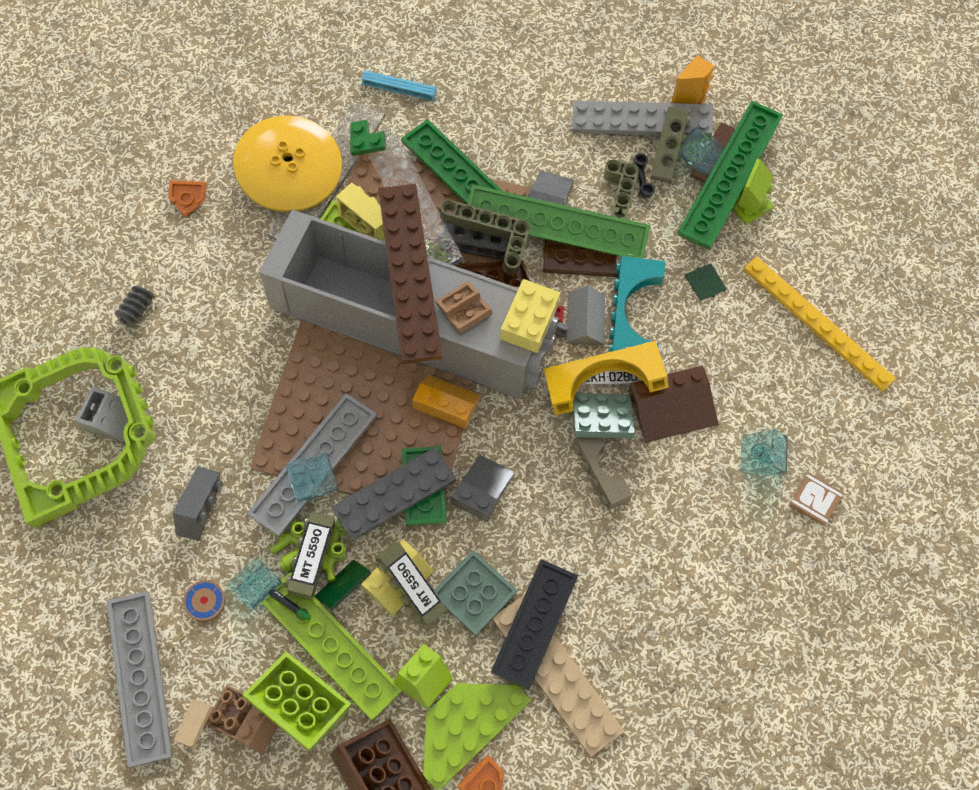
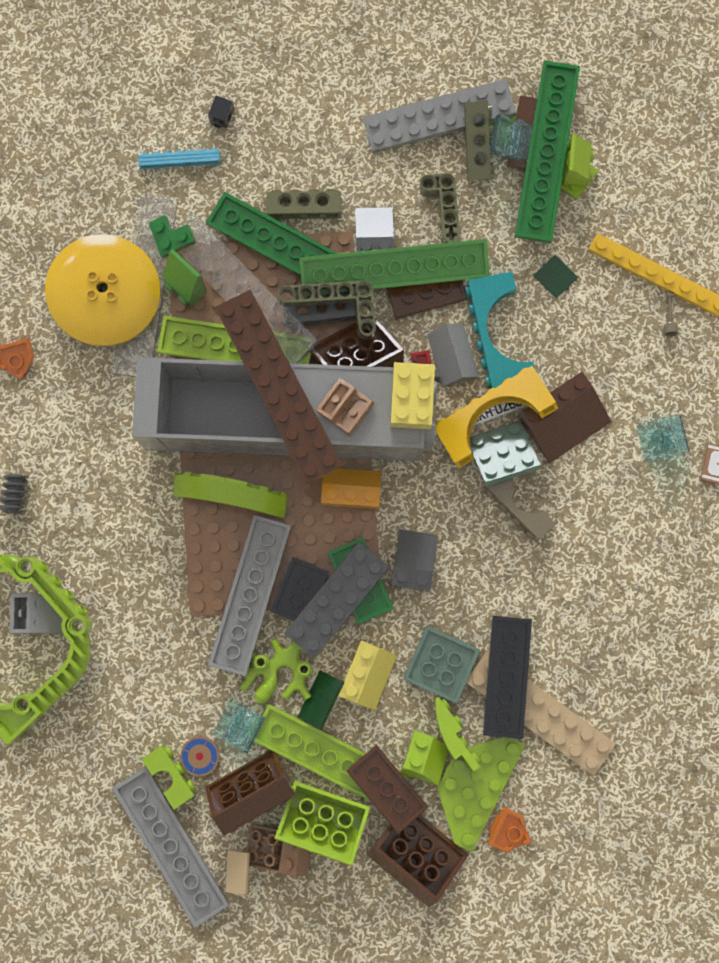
camera: 15 degrees left, 15 degrees up
(171, 625) = (162, 760): none -> lime arch
(196, 503) = (156, 668): dark grey wedge -> none
(236, 647) = (248, 792): none -> reddish brown slope
(289, 604) = (293, 739): black piece -> none
(311, 556) = (282, 684): brick -> none
(312, 477) = (254, 610): clear light blue slope -> none
(335, 361) = (230, 492): none -> lime windscreen
(361, 211) = (201, 325): light yellow brick -> none
(362, 170) = (183, 280): none -> bright green slope
(362, 470) = (298, 588): none -> black plate
(375, 693) = (387, 789): none -> reddish brown tile
(410, 584) = (383, 680): brick -> none
(450, 60) = (221, 112): none -> black brick
(459, 664) = (449, 729): none -> lime slope
(501, 158) = (311, 211): none -> olive brick
(646, 189) = (451, 167): black bar -> none
(694, 82) = (481, 62): light orange slope -> none
(802, 356) = (670, 327): none -> dark tan hinge

